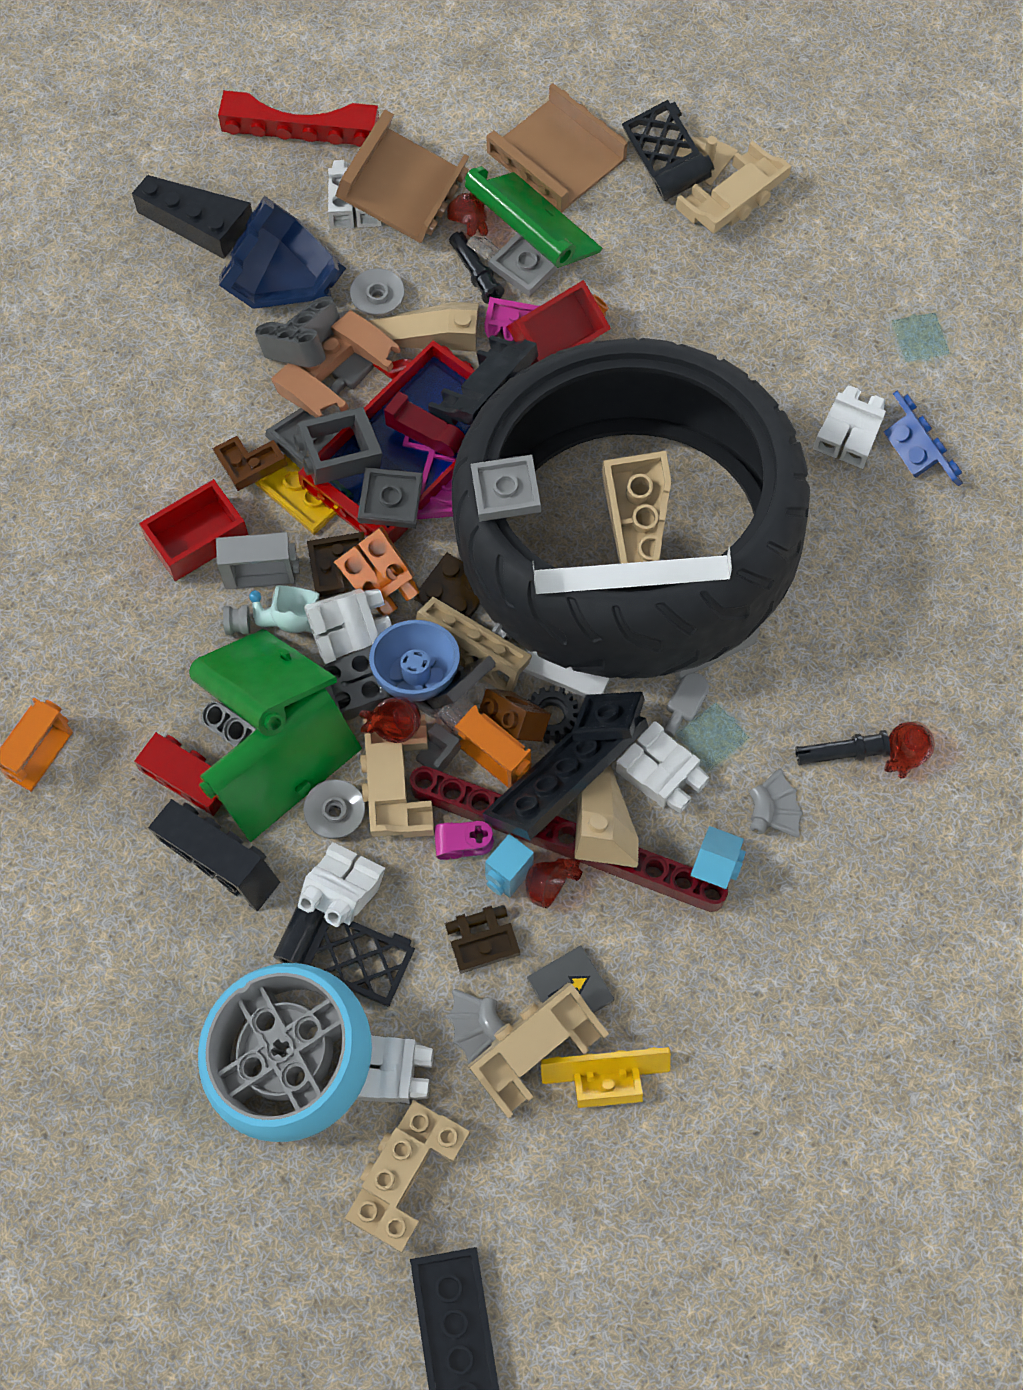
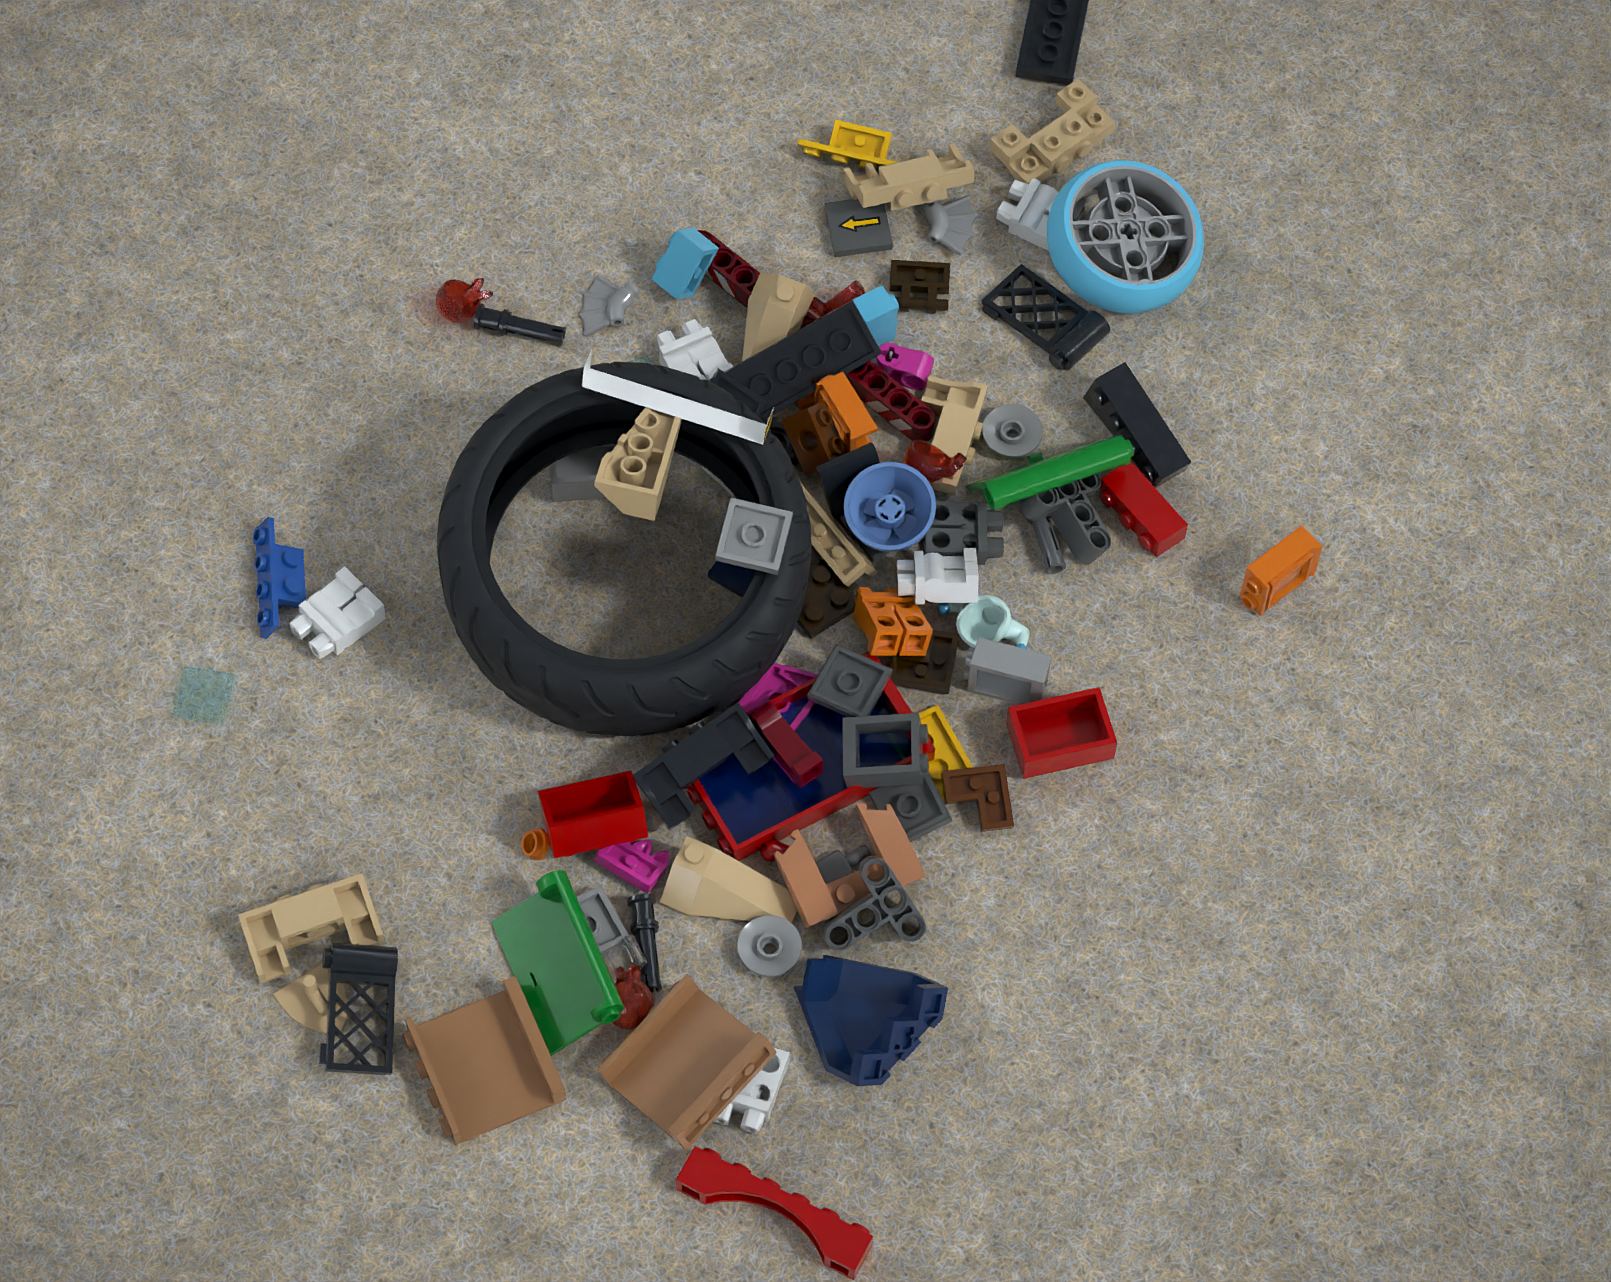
camera: 160 degrees left, 5 degrees down
(193, 213) = (938, 1113): black wedge -> none
(236, 620) = (1046, 636): light grey wheel -> none
(259, 678) = (1053, 546): green door -> none
(339, 887) = (1032, 353): white hips -> none
(441, 749) = (892, 445): dark grey panel -> none

